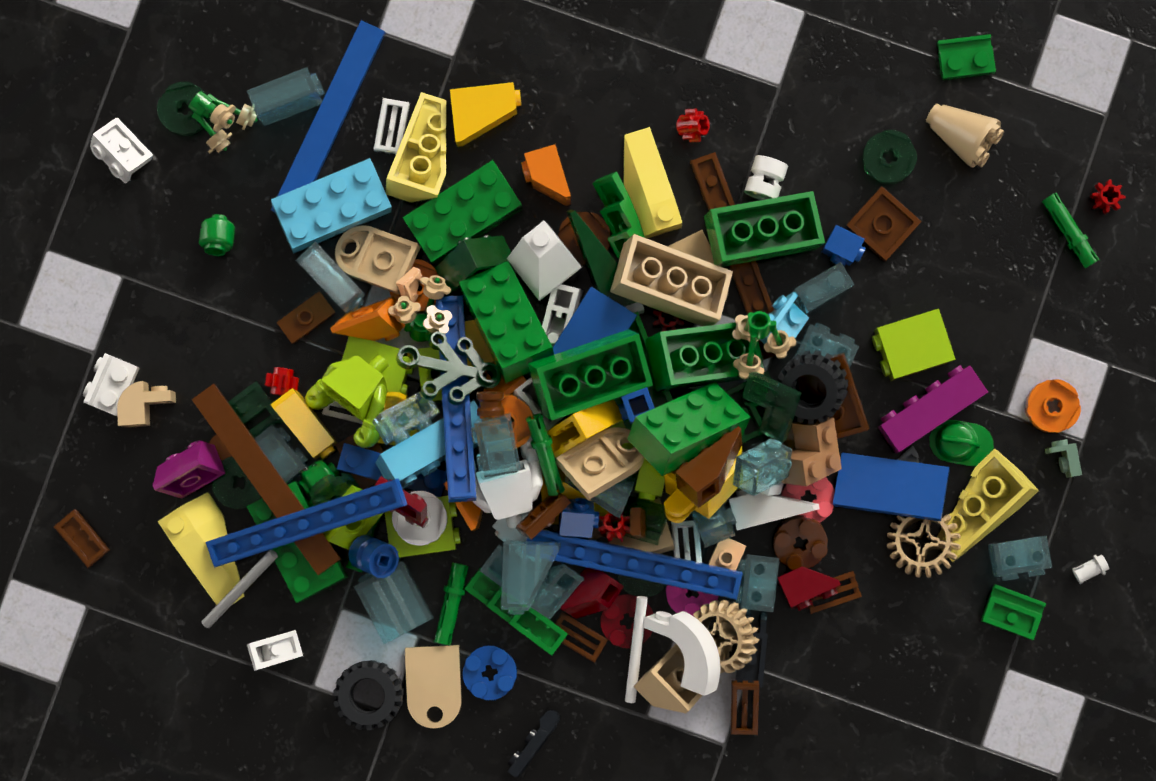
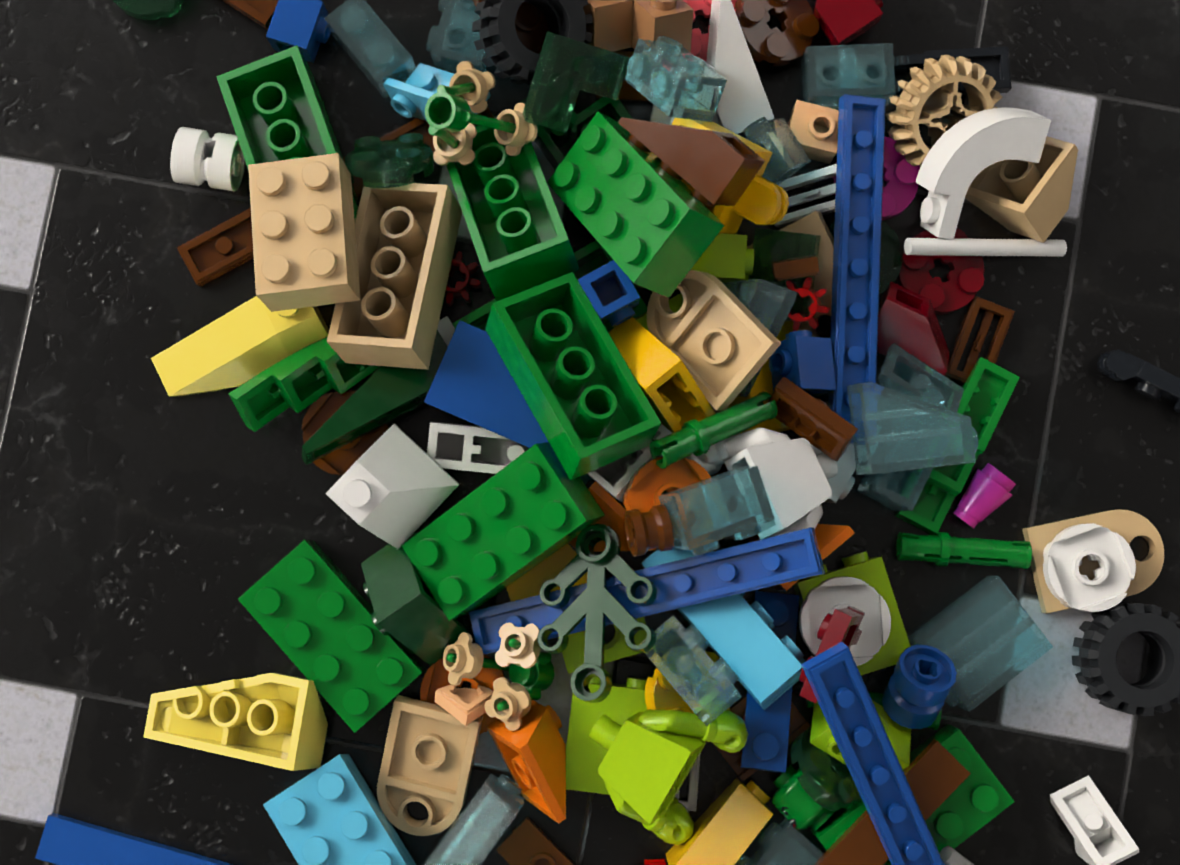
camera: 105 degrees left, 0 degrees up
(396, 104) = (168, 775): white tile -> none
(415, 667) = (1111, 579): none -> white plate
(480, 685) = (1084, 476): blue plate -> none
(482, 109) = (156, 631): yellow slope -> none
(483, 622) = (984, 495): none -> dark pink cone
(546, 174) = (249, 505): orange slope -> none
(693, 125) = (137, 287): red gear -> none
(700, 230) = (303, 232): none -> tan brick
(743, 288) = (389, 161): none -> clear green plate
(744, 686) = (1015, 72): reddish brown tile -> none

